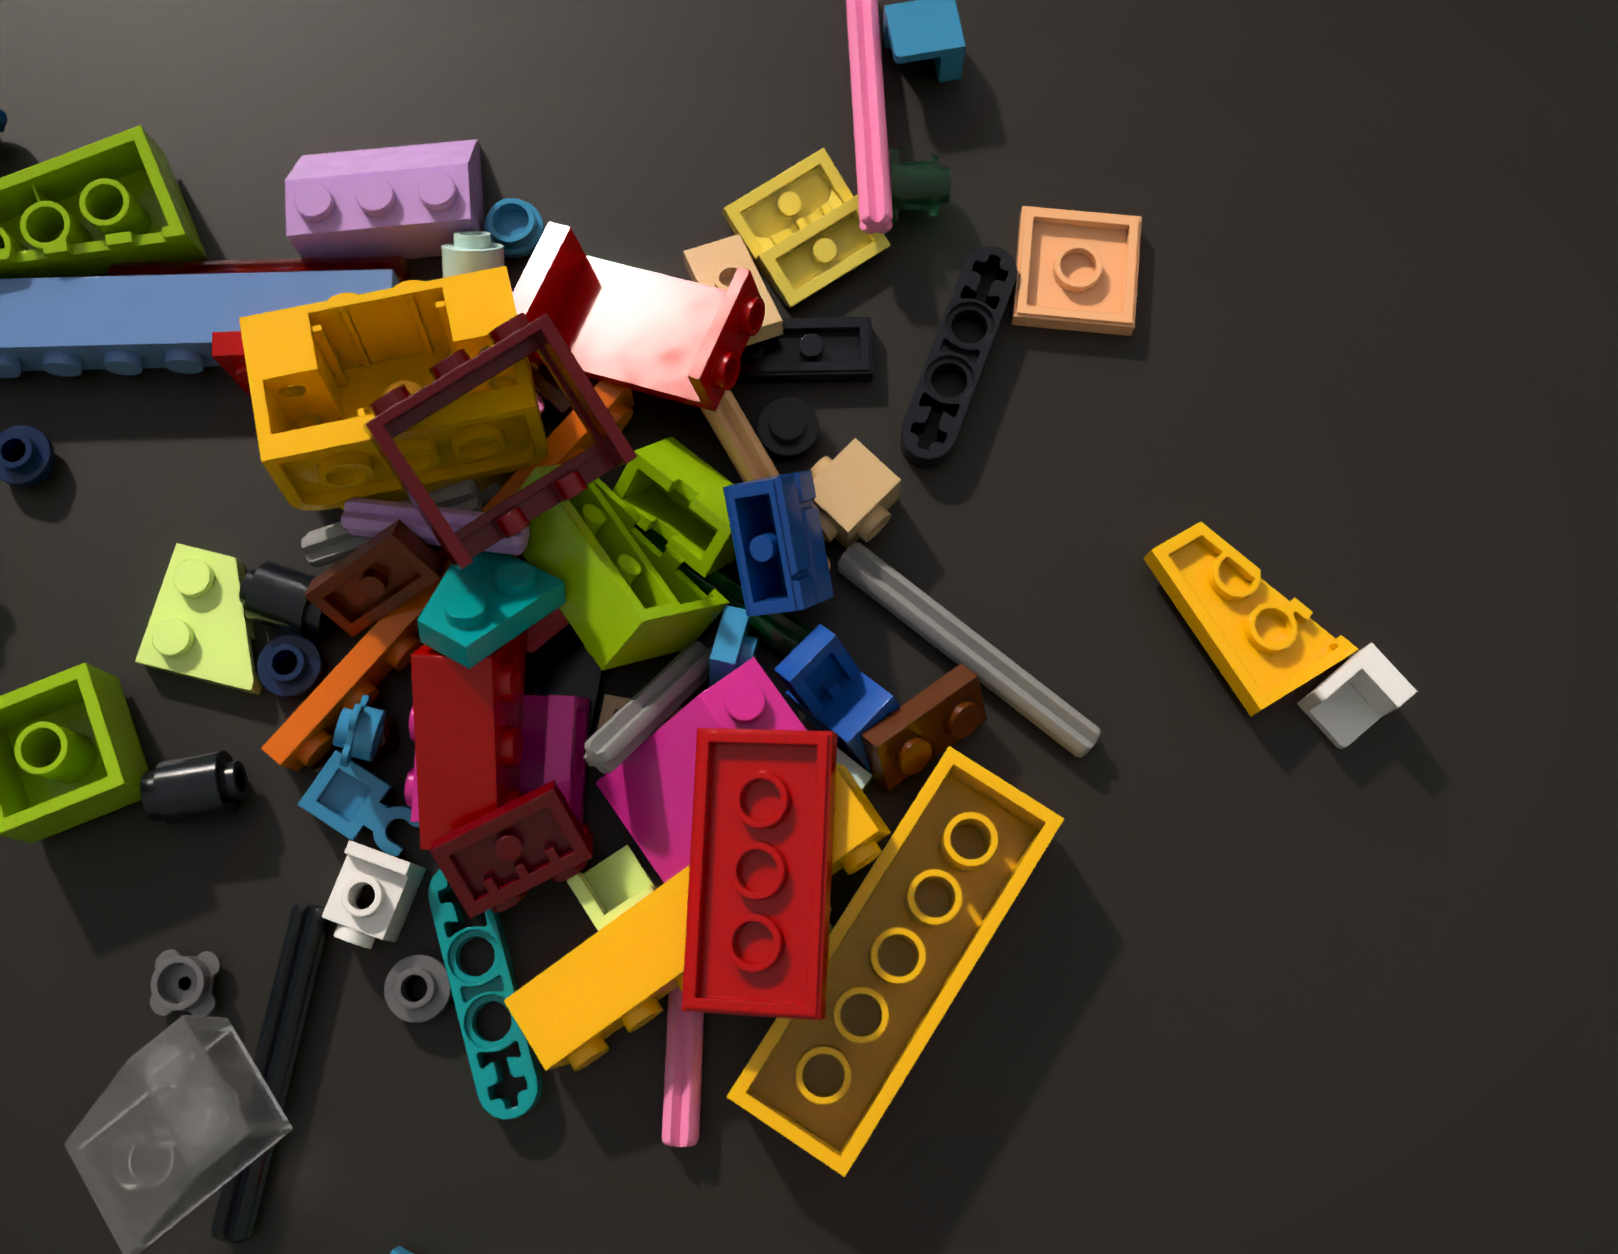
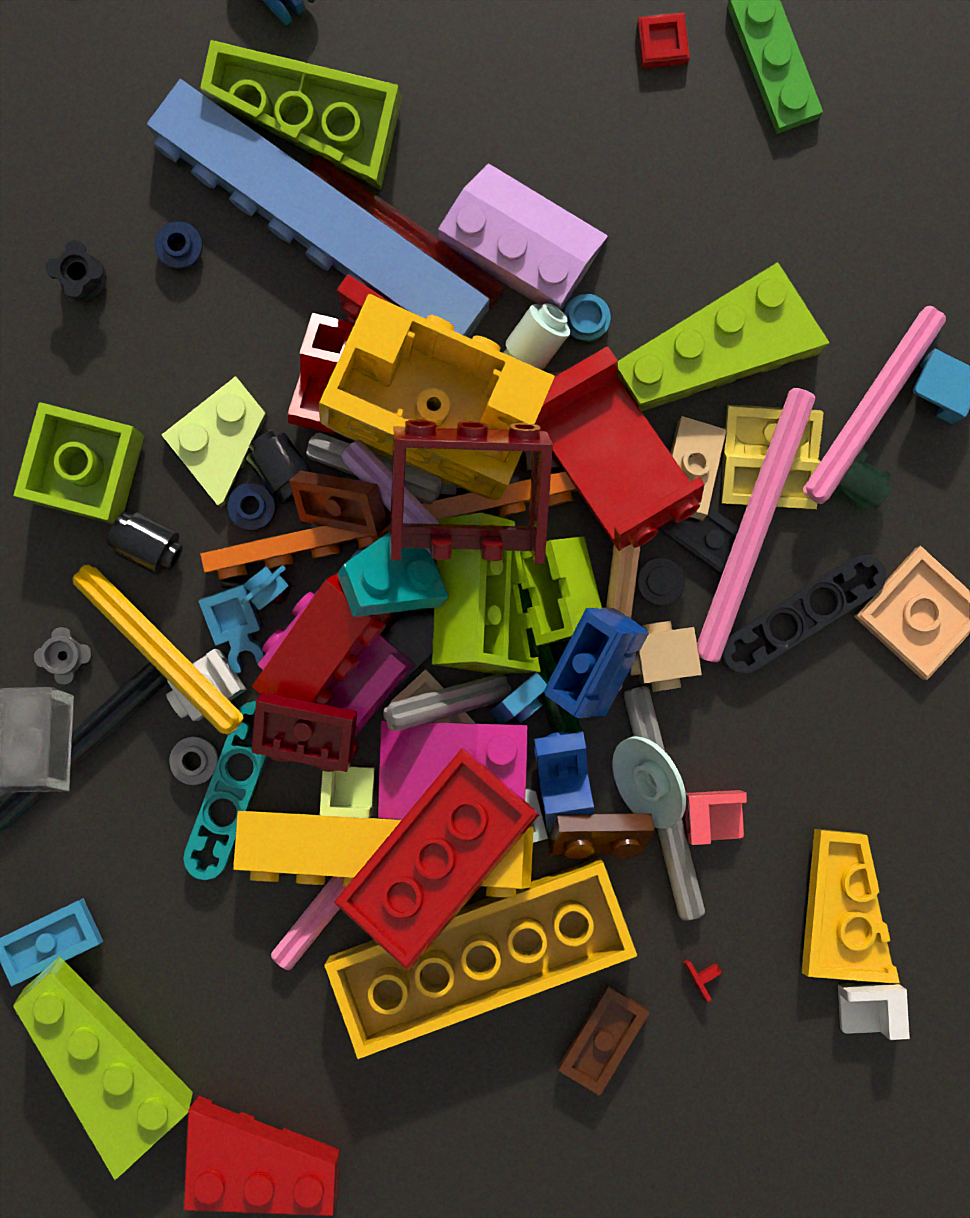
camera: 35 degrees right, 10 degrees up
(239, 447) = (318, 359): none -> red brick
(287, 888) = (158, 650): none -> yellow axle
(671, 147) = (731, 338): none -> lime wedge
(839, 298) = (755, 524): none -> bright pink axle
(932, 627) = (649, 781): none -> light aqua dish
(1028, 621) = (714, 816): none -> coral panel
(1101, 950) = (603, 1040): none -> reddish brown plate
(1151, 806) = (702, 977): none -> red piece

